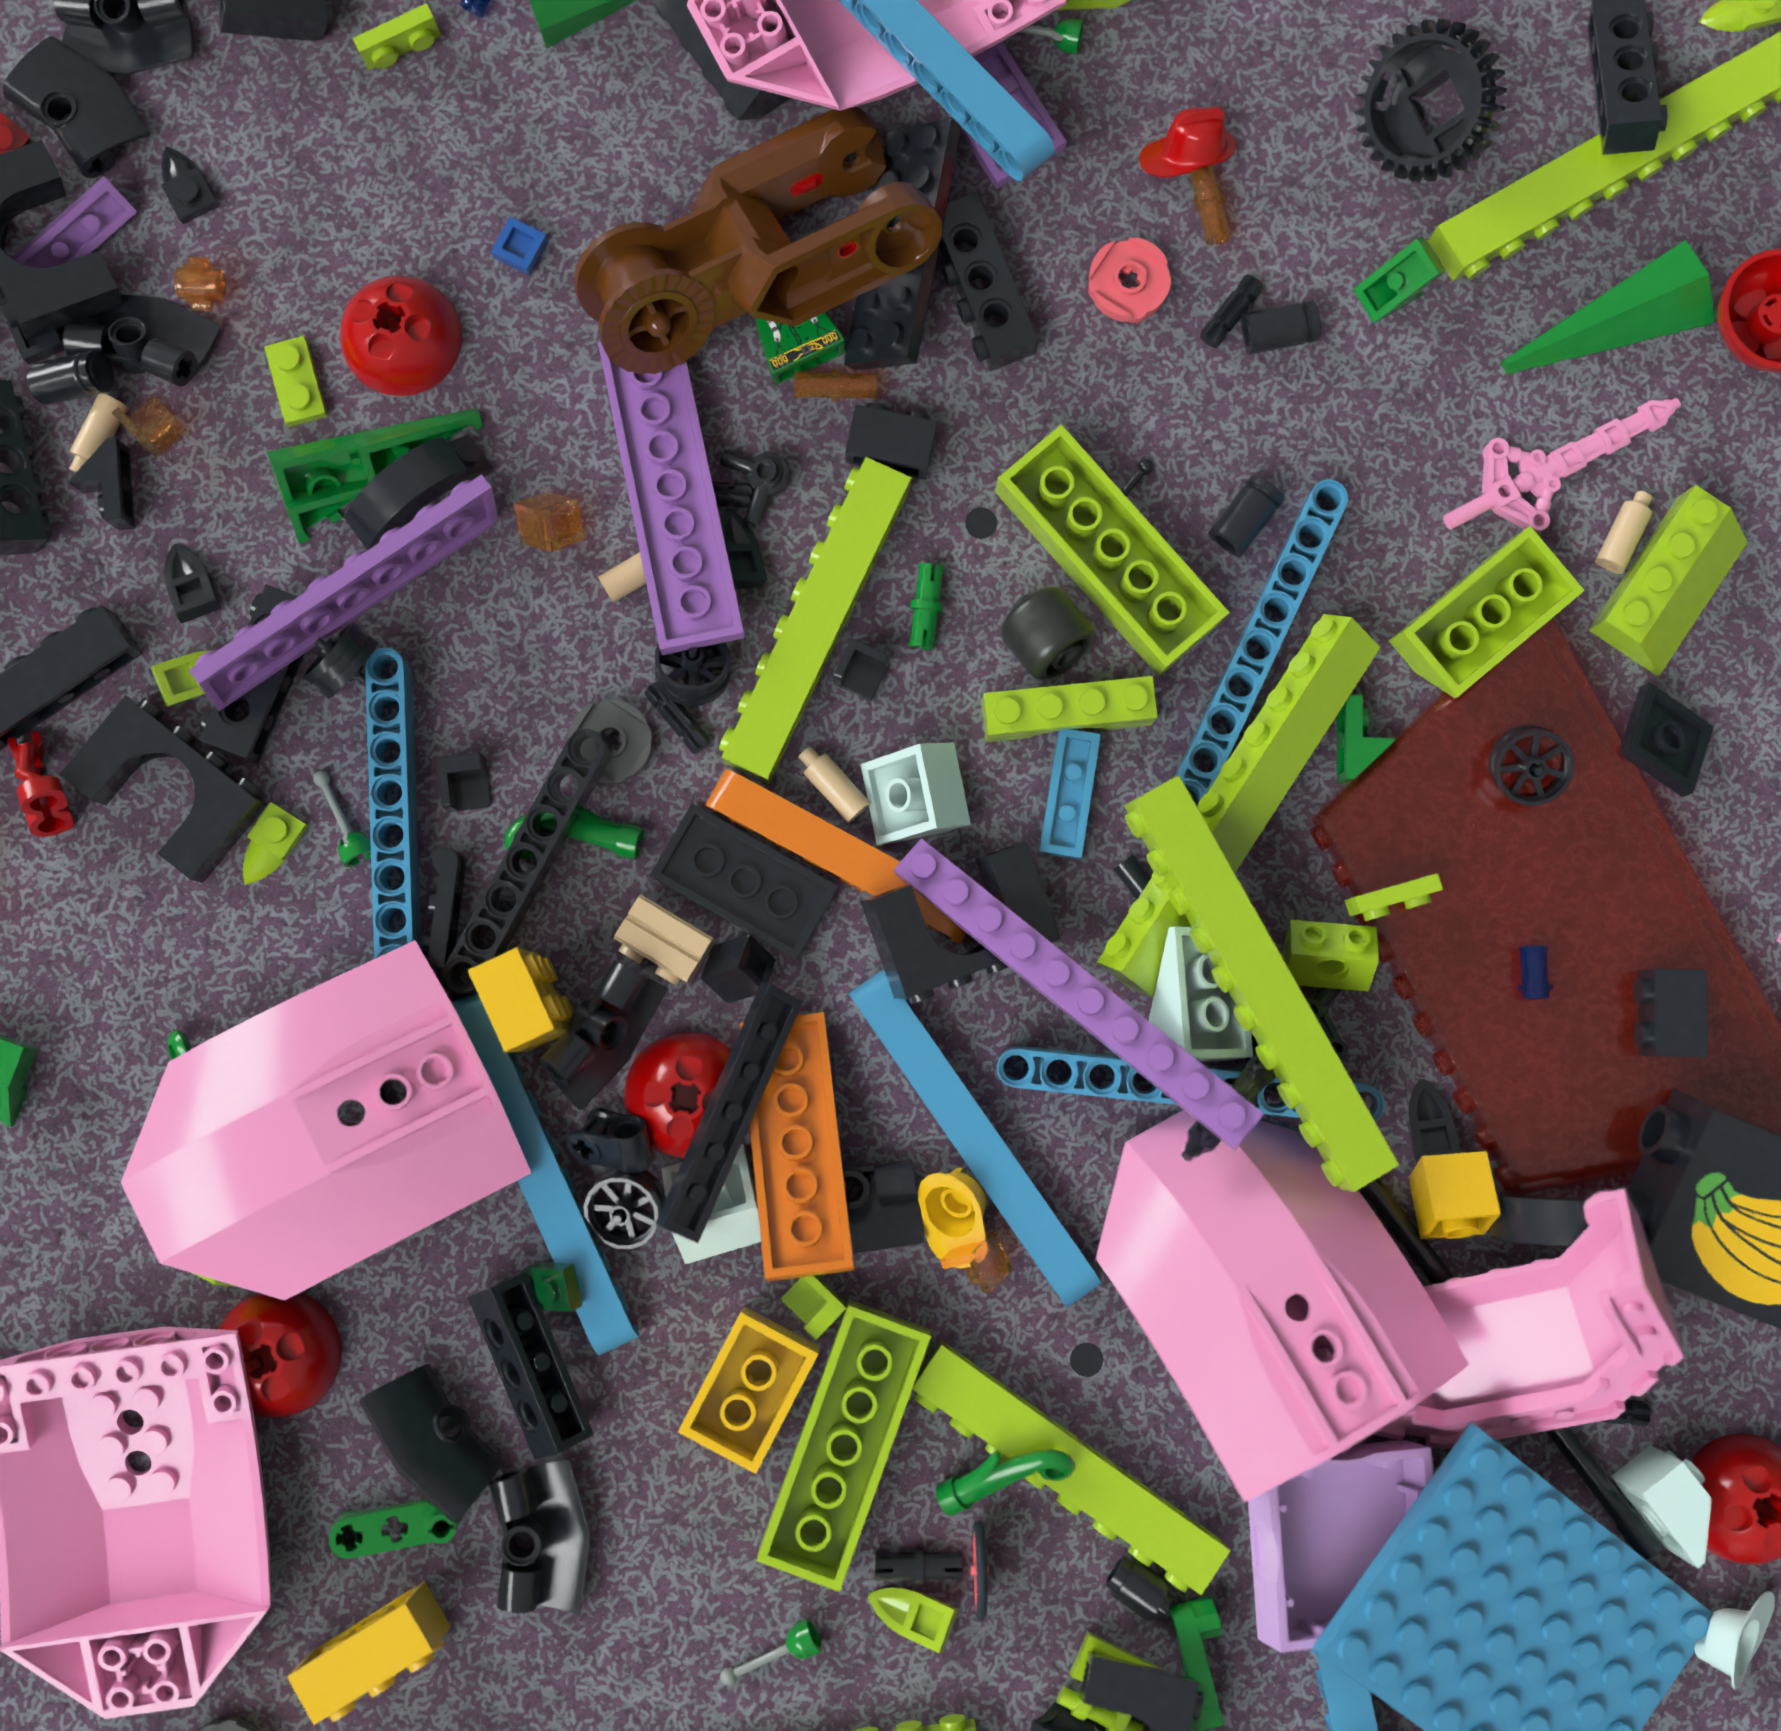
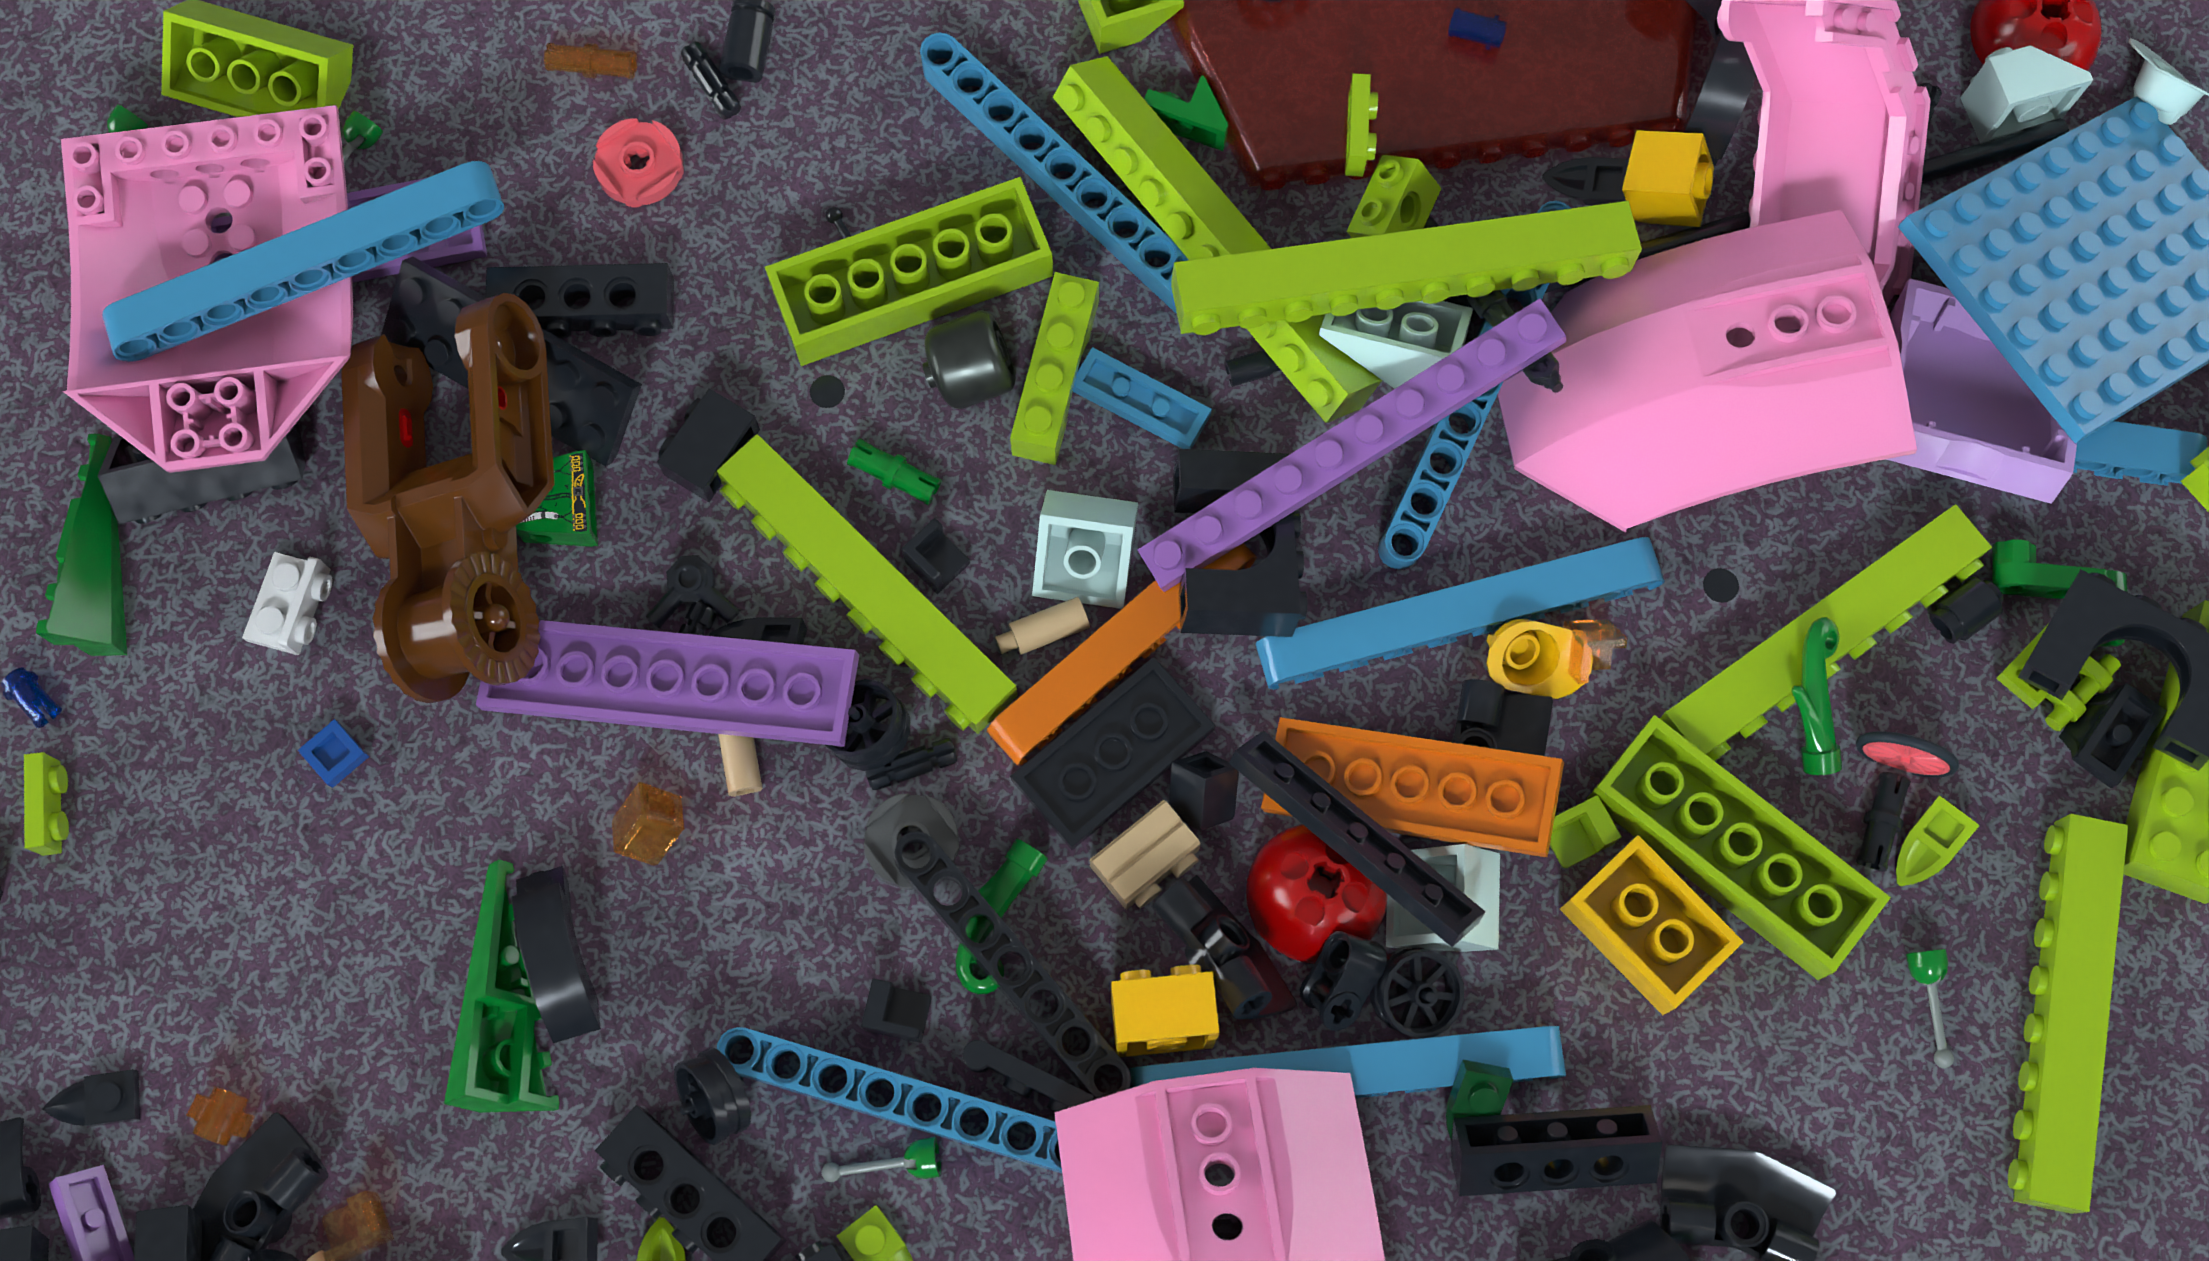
camera: 65 degrees left, 10 degrees down
(296, 381) = (375, 1049): lime plate -> none
(346, 594) = (647, 1061): medium lavender plate -> none
(413, 350) = (398, 921): red piece -> none
(632, 156) = (288, 603): none -> white bracket
(835, 385) = (625, 481): clear orange pin -> none
(1192, 142) = (527, 57): red piece -> none
(1246, 515) = (924, 136): black piece -> none

